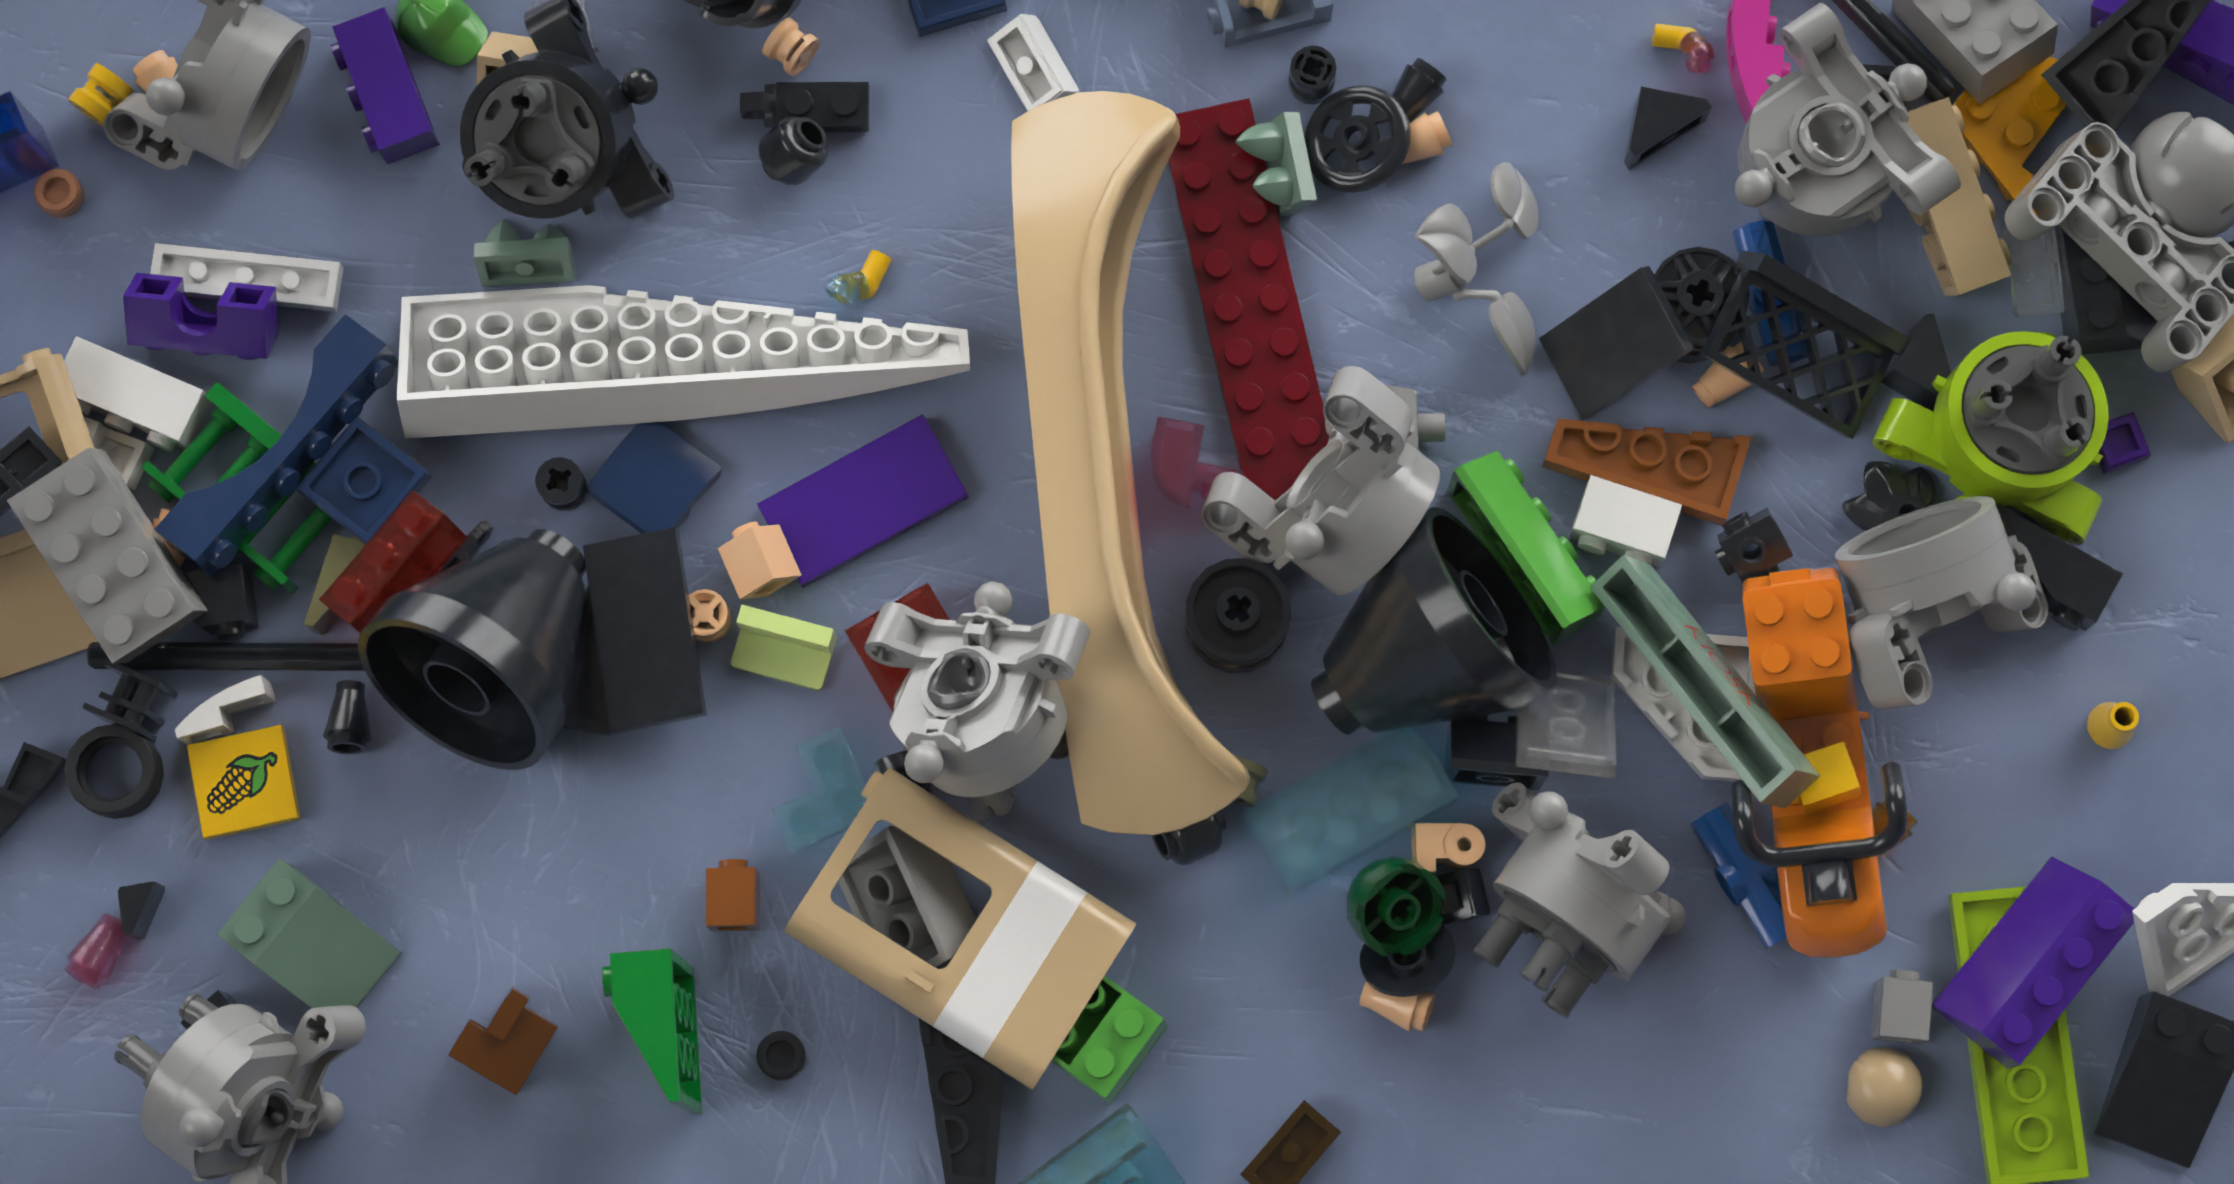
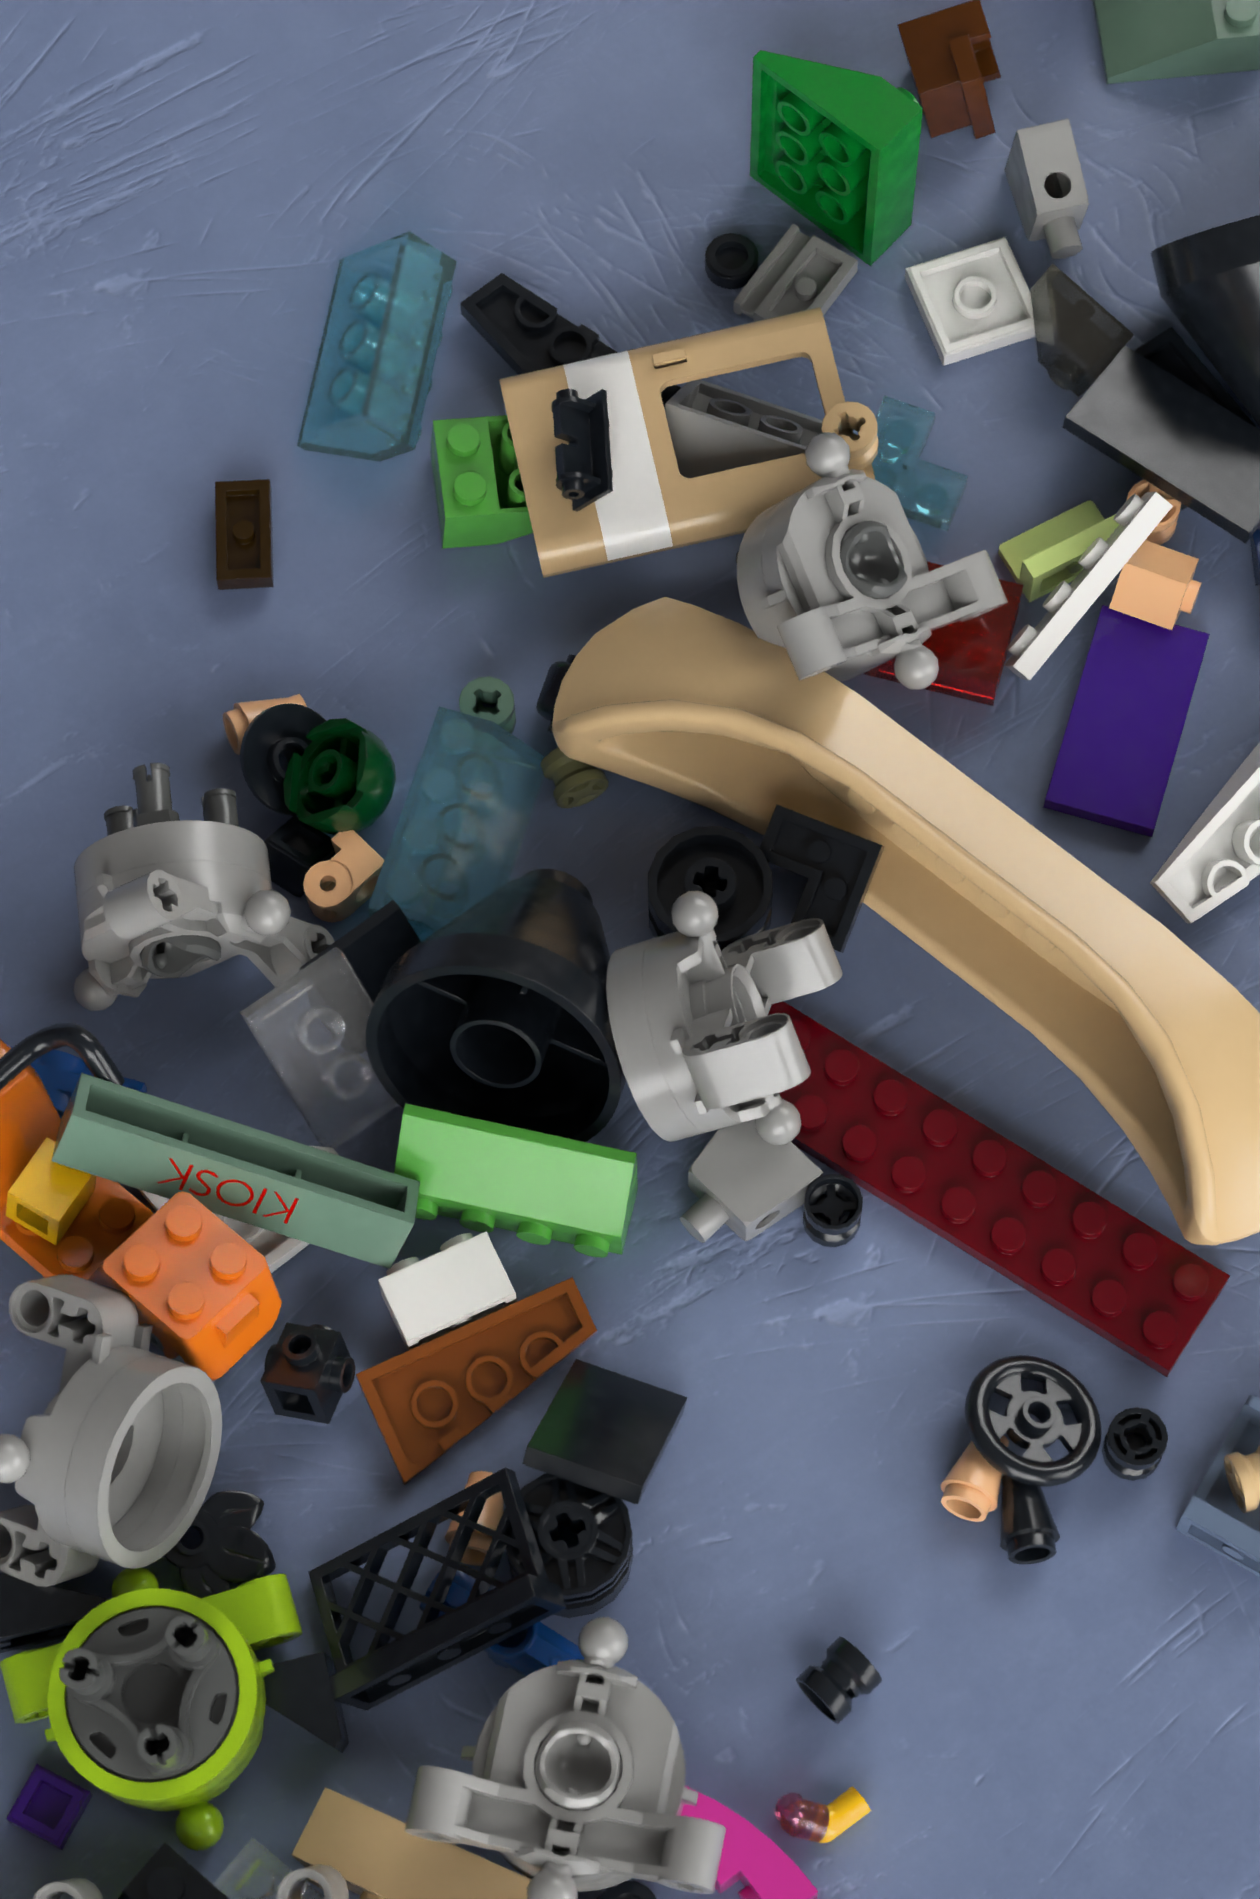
camera: 135 degrees right, 10 degrees down
(529, 910) = (1048, 186): none -> light grey torso
(629, 775) = (1073, 332): none -> clear smoke slope
(656, 873) = (973, 300): none -> white tile
(732, 896) = (893, 327): dark orange brick -> none
(762, 991) = (796, 277): none -> light grey plate
(805, 589) = (1100, 566): none -> white plate
(868, 810) = (858, 418): none -> tan wheel
(1029, 973) = (585, 463): none -> black hinge
(1149, 559) = (833, 861): none -> black plate
(1177, 464) = (890, 980): clear pink brick -> none
(1251, 886) = (489, 691): none -> sand green wheel
(1288, 173) = (1098, 1343): sand green tile -> none
(1351, 351) = (832, 1197): none -> black wheel
(1450, 239) = (834, 1350): light grey plant -> none
(1607, 101) = (839, 1680): none -> black wheel
(1660, 120) = (773, 1706): black slope -> none

